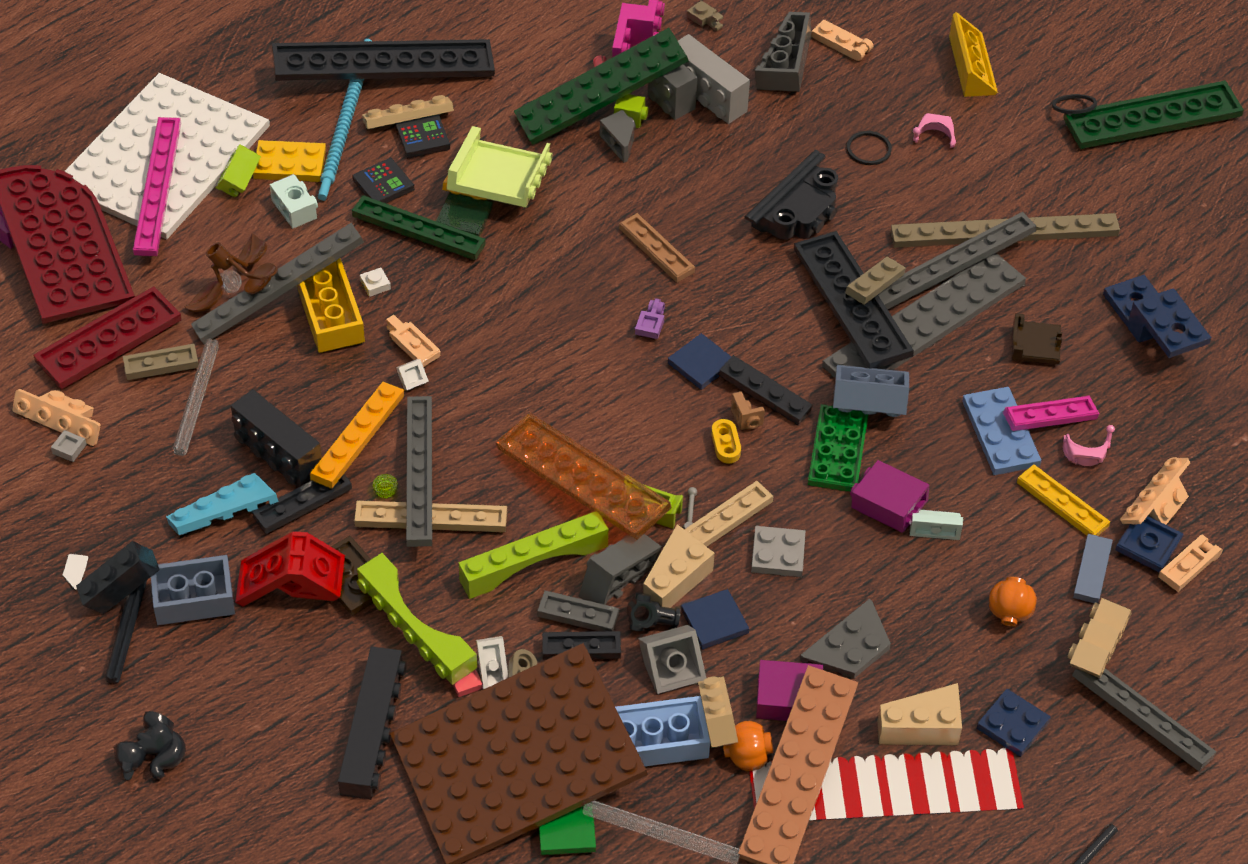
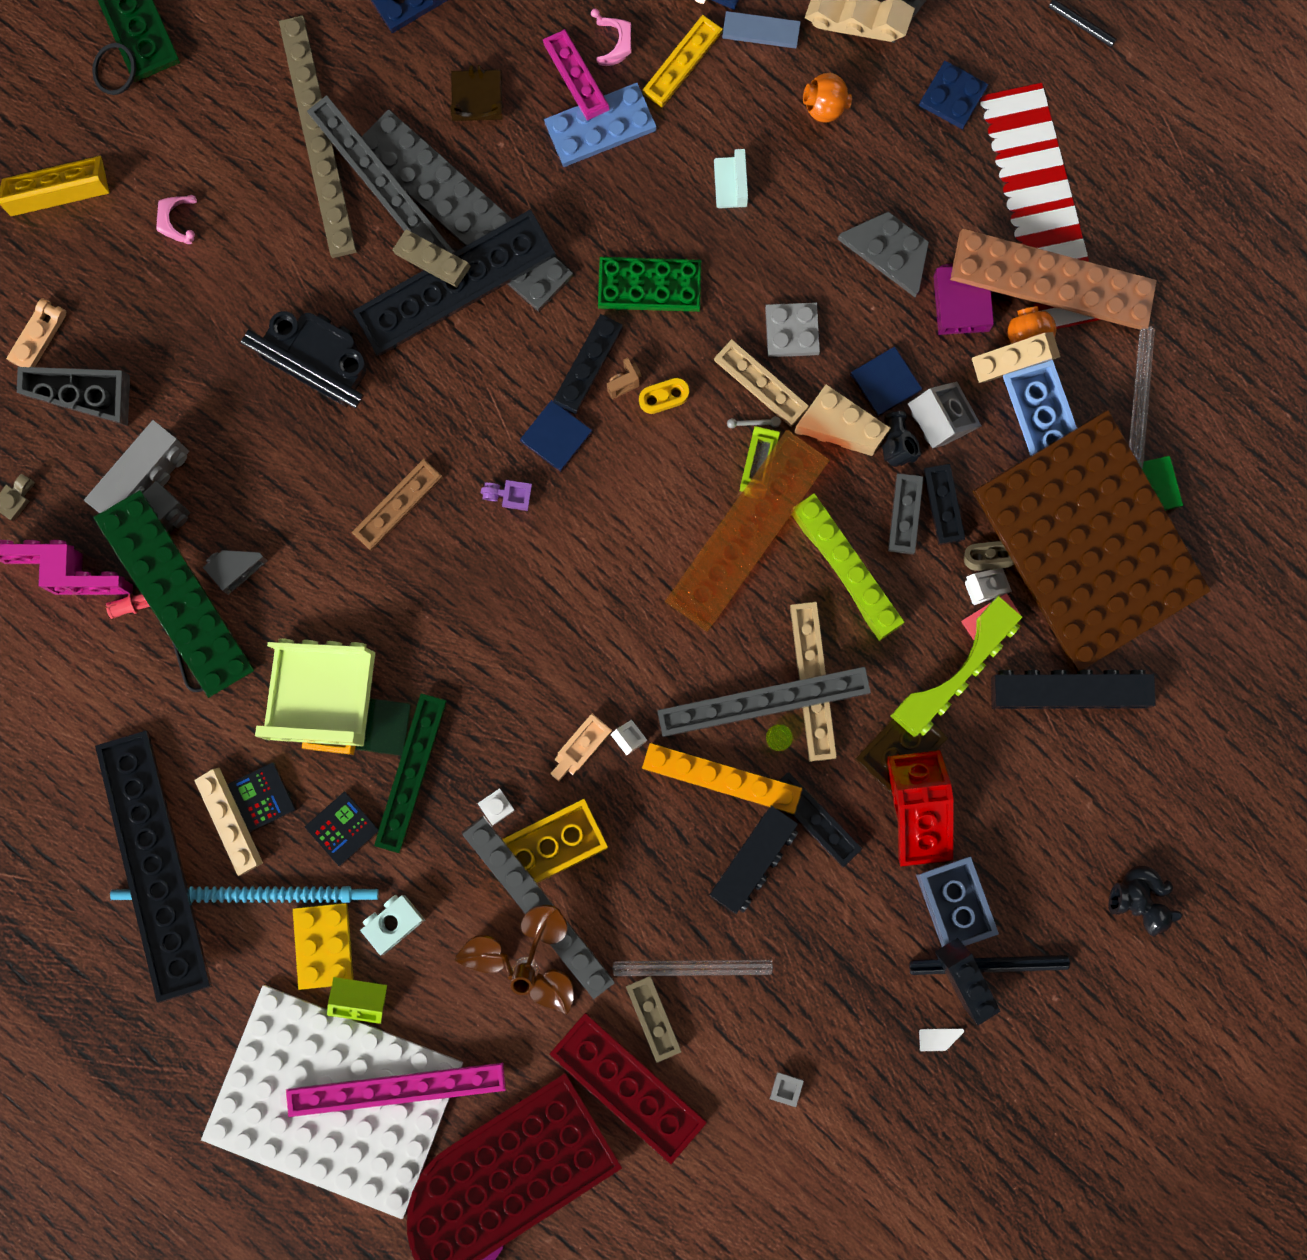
camera: 95 degrees left, 30 degrees up
(58, 413) = (741, 1111): light nougat bracket -> none
(222, 504) = (829, 892): medium azure wing -> none
(618, 566) = (855, 480): dark grey wedge -> none
(633, 107) = (195, 557): lime brick -> none
(869, 133) = (207, 313): black piece -> none
(871, 390) = (586, 248): sand blue brick -> none
(889, 495) = (711, 225): magenta brick -> none
(922, 719) = (973, 172): tan wedge -> none

